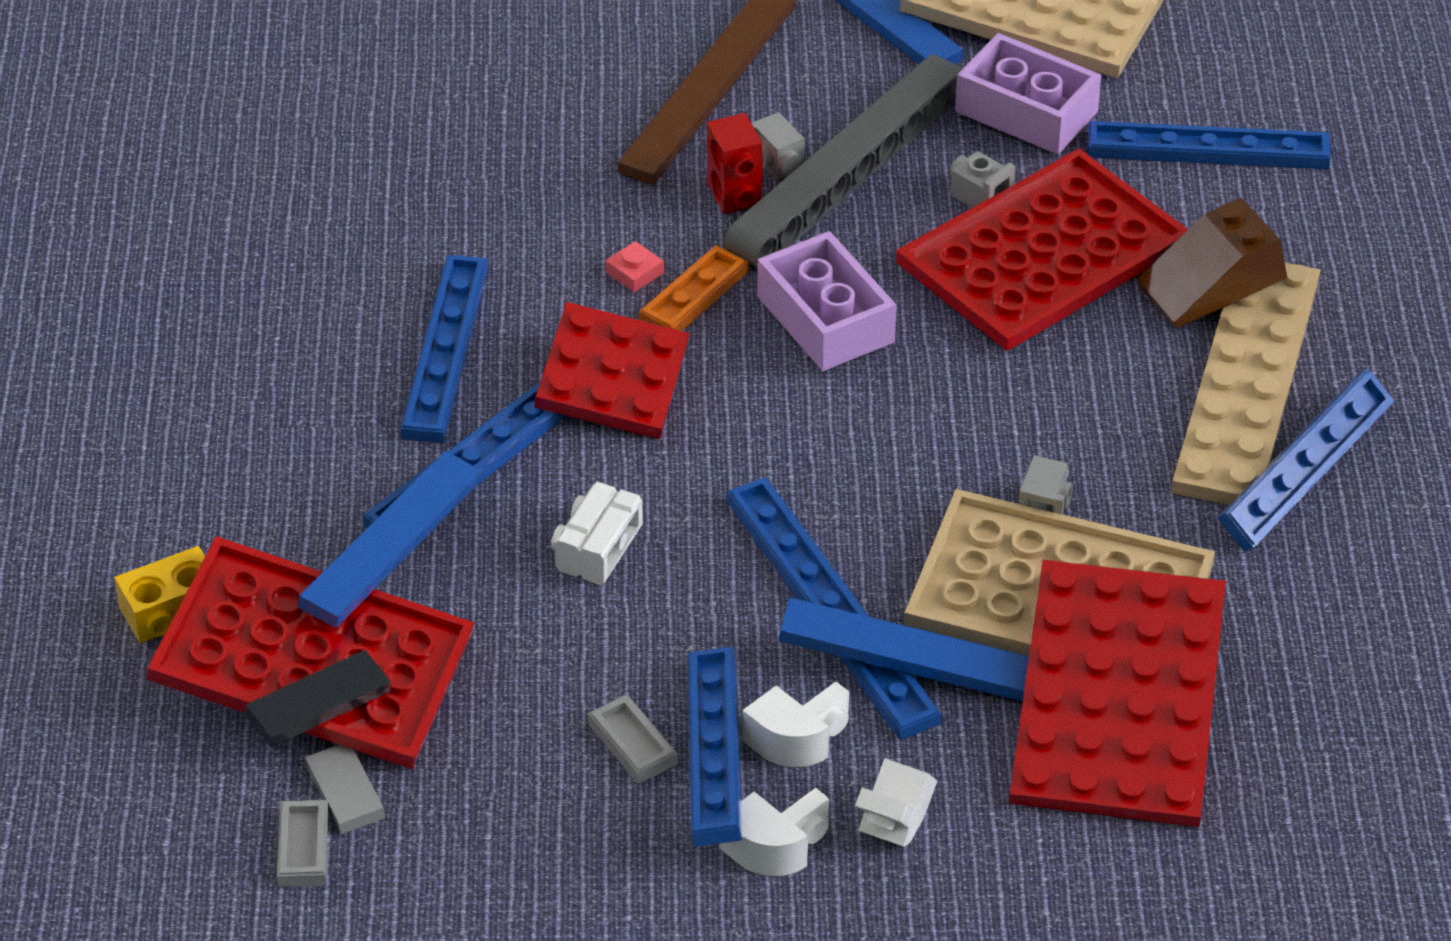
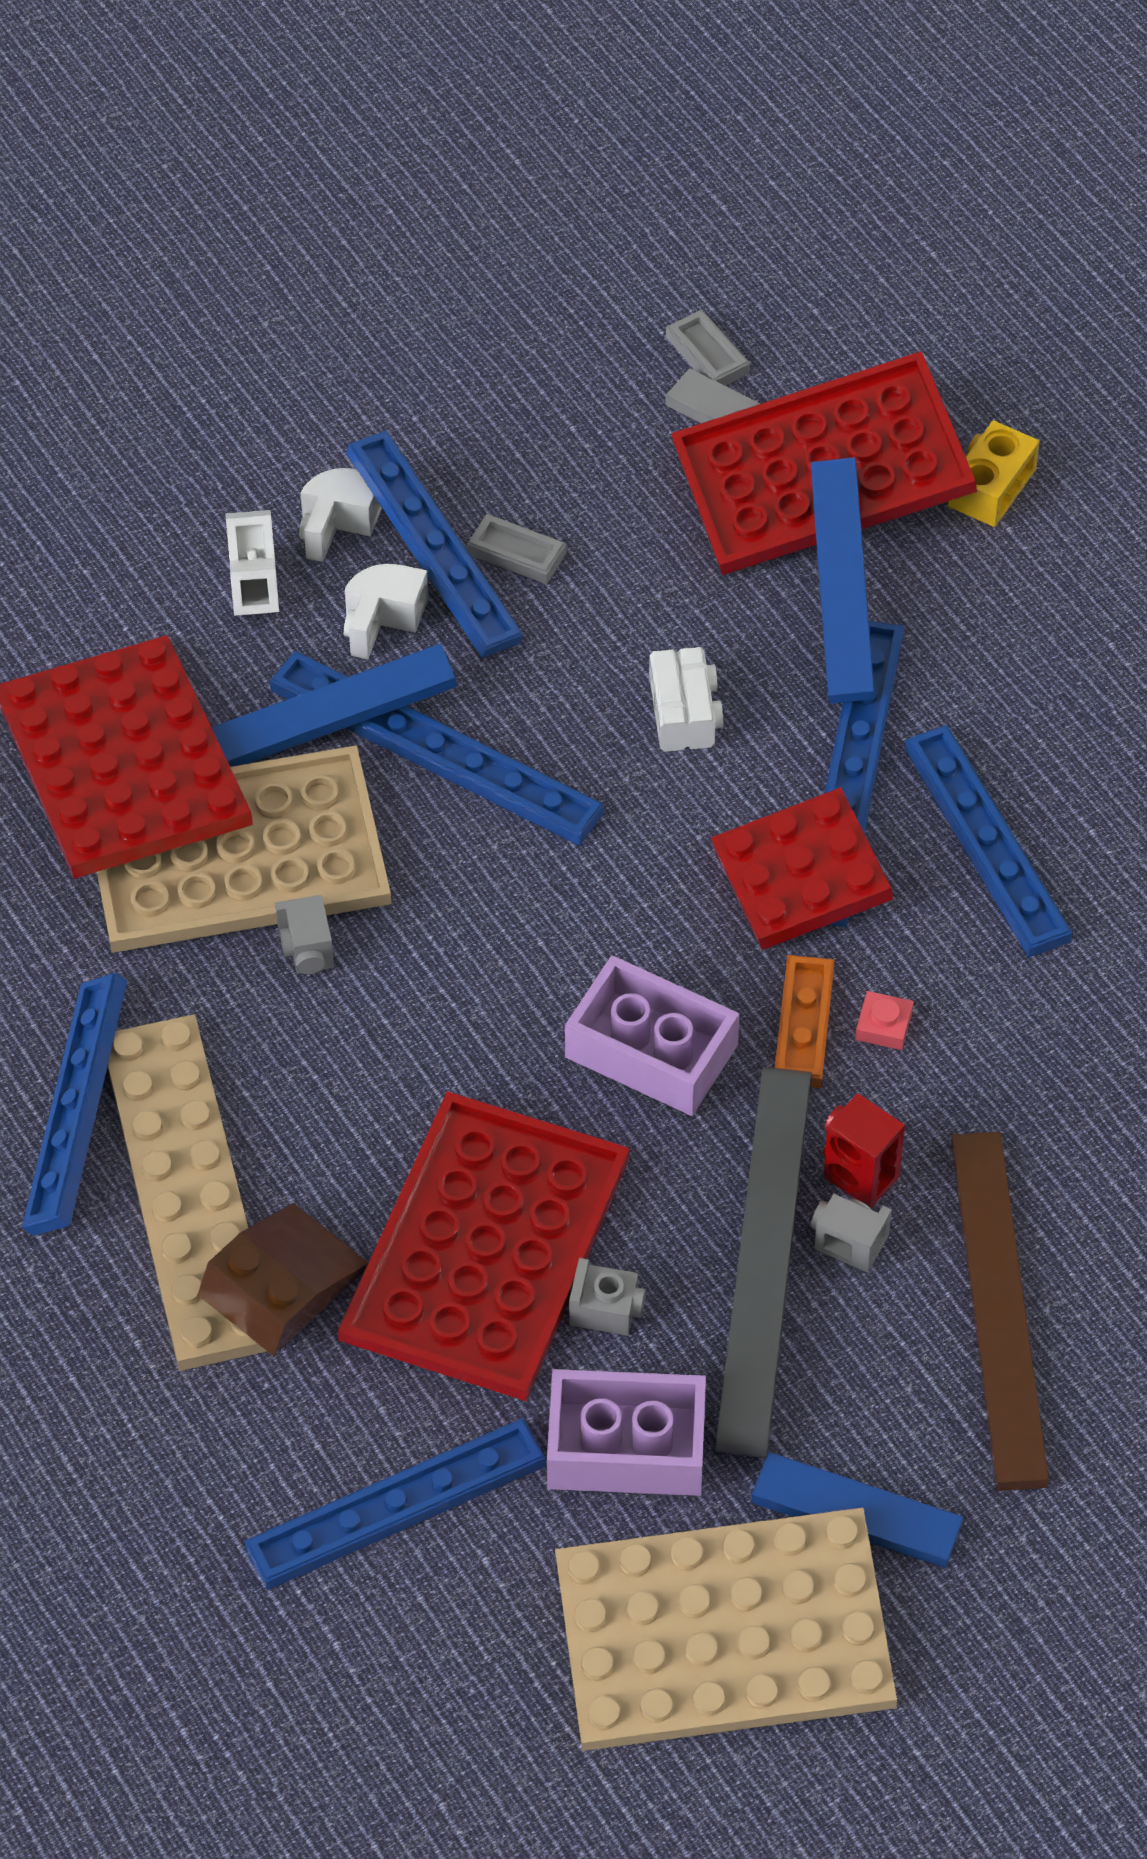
camera: 150 degrees right, 10 degrees up
(317, 698) = (774, 411): black tile -> none

